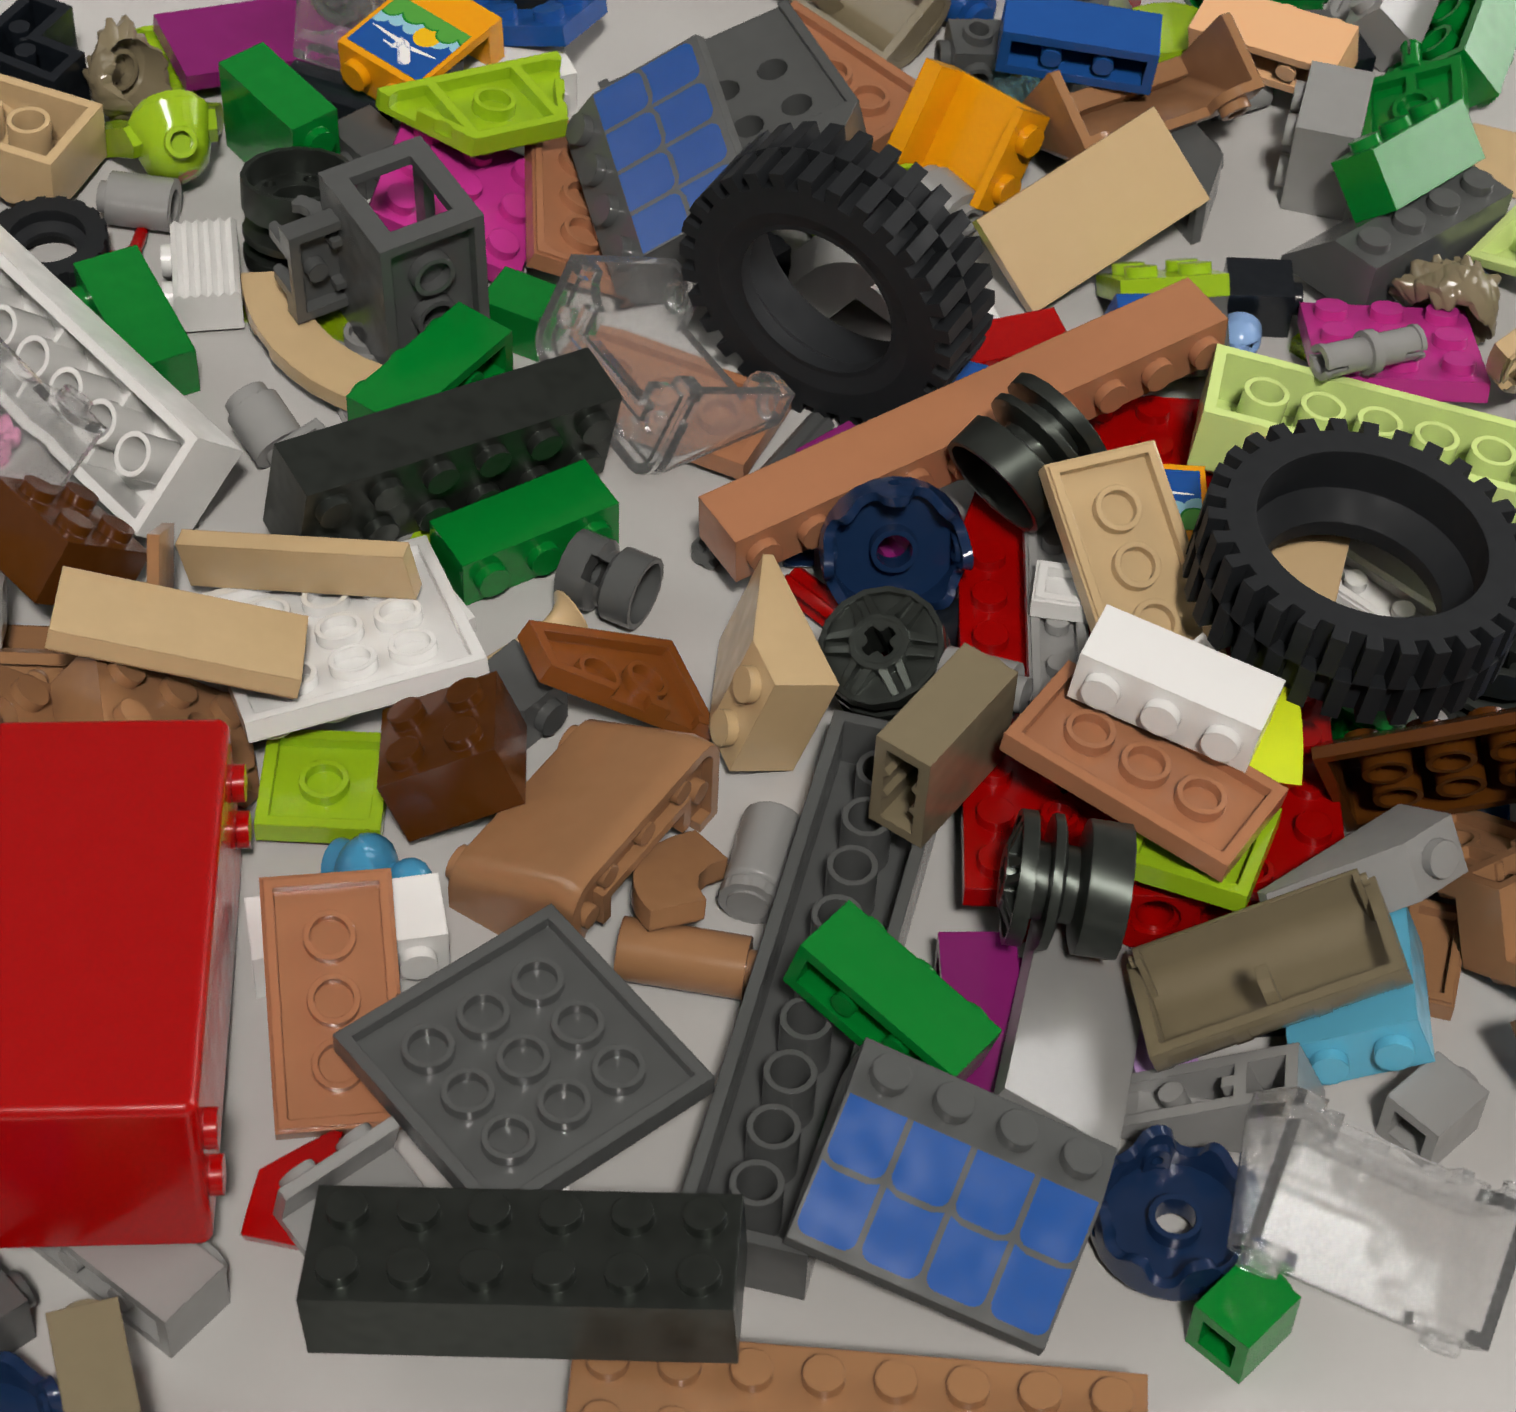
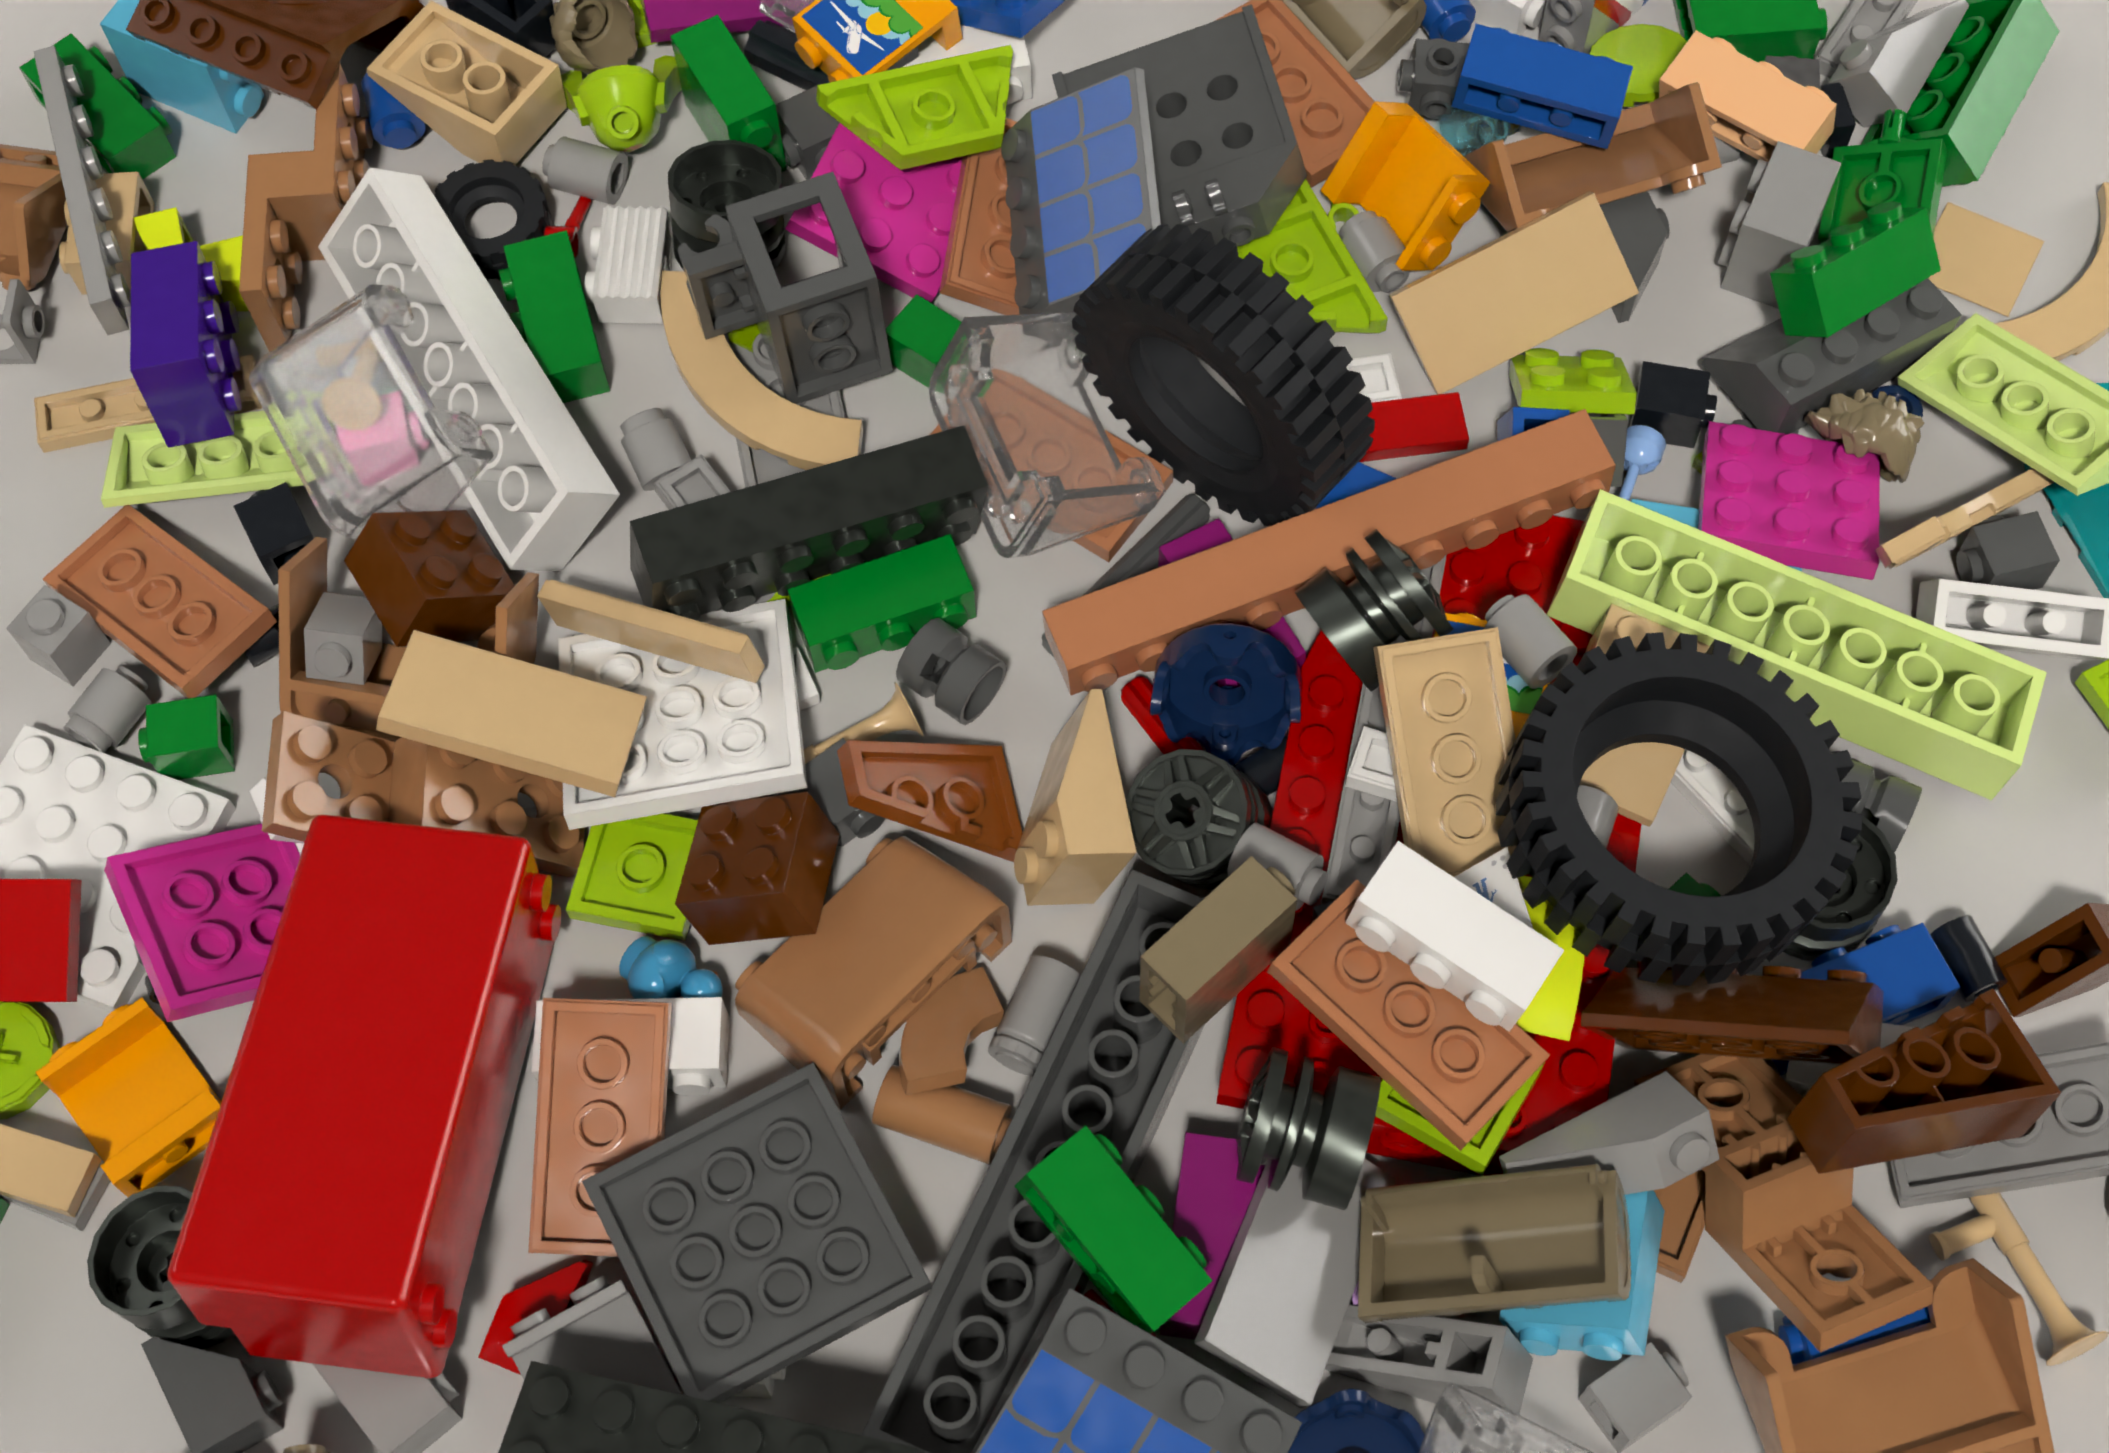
camera: 15 degrees right, 15 degrees up
(446, 355) = (819, 424): green brick -> none
(1186, 460) = (1530, 639): none -> light grey brick
(1368, 352) = (1754, 520): light grey pin -> none

